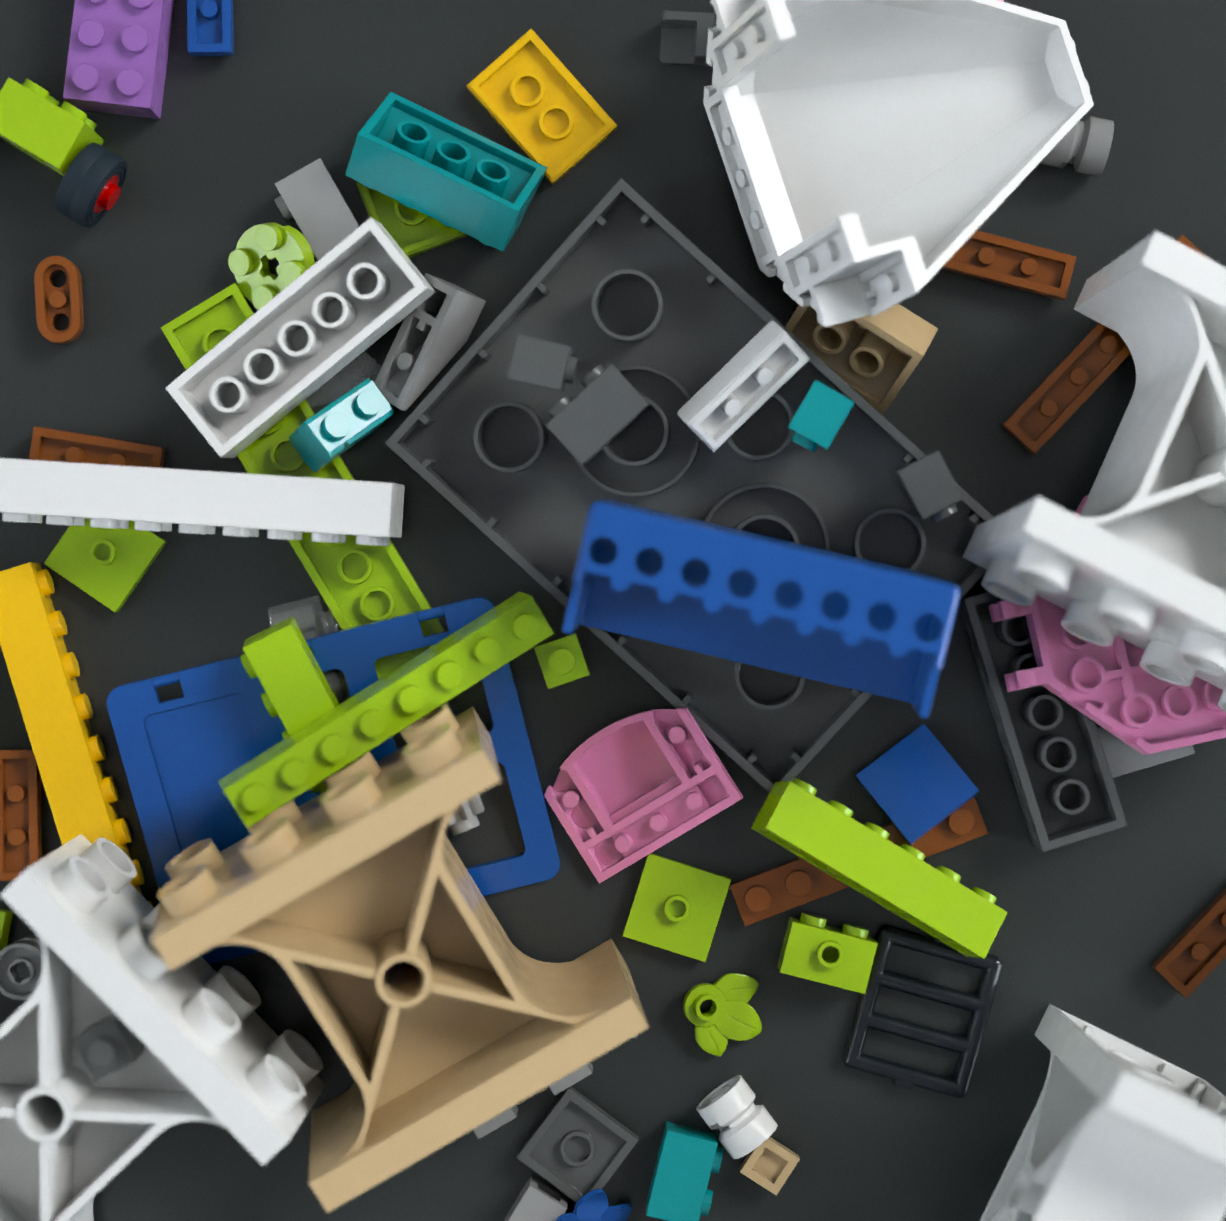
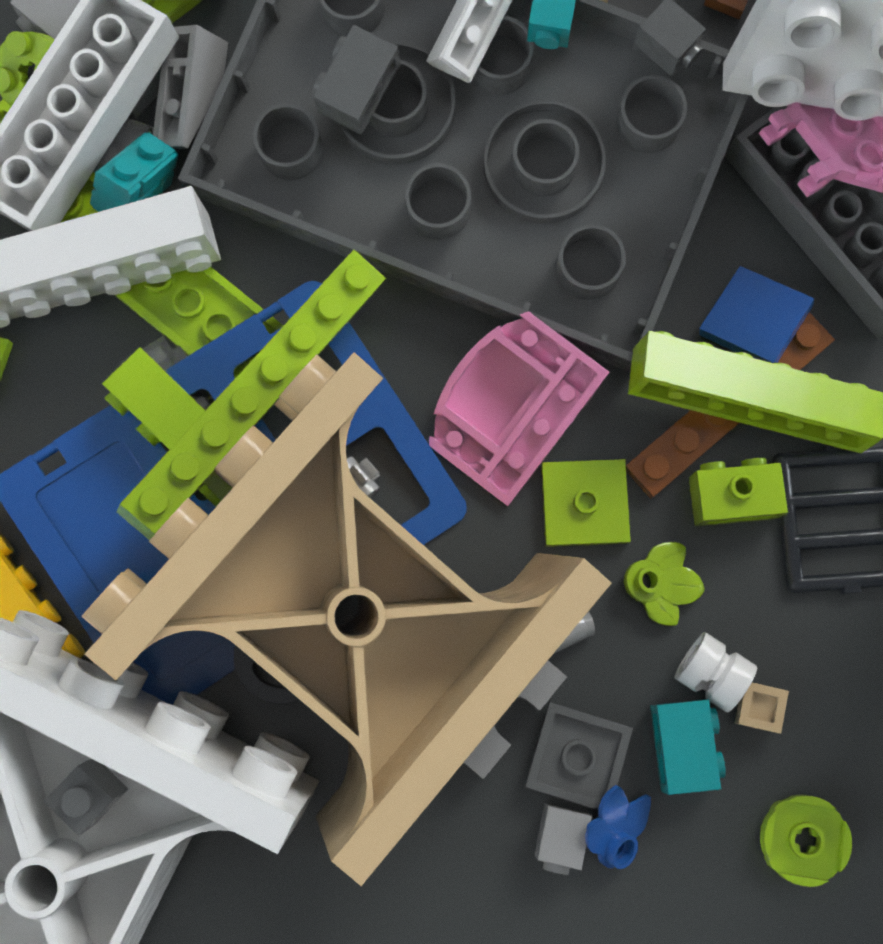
camera: 25 degrees left, 10 degrees down
(542, 363) = (292, 53): dark grey brick -> none
(562, 661) = (402, 317): lime brick -> none
(762, 602) = (570, 163): blue container -> none

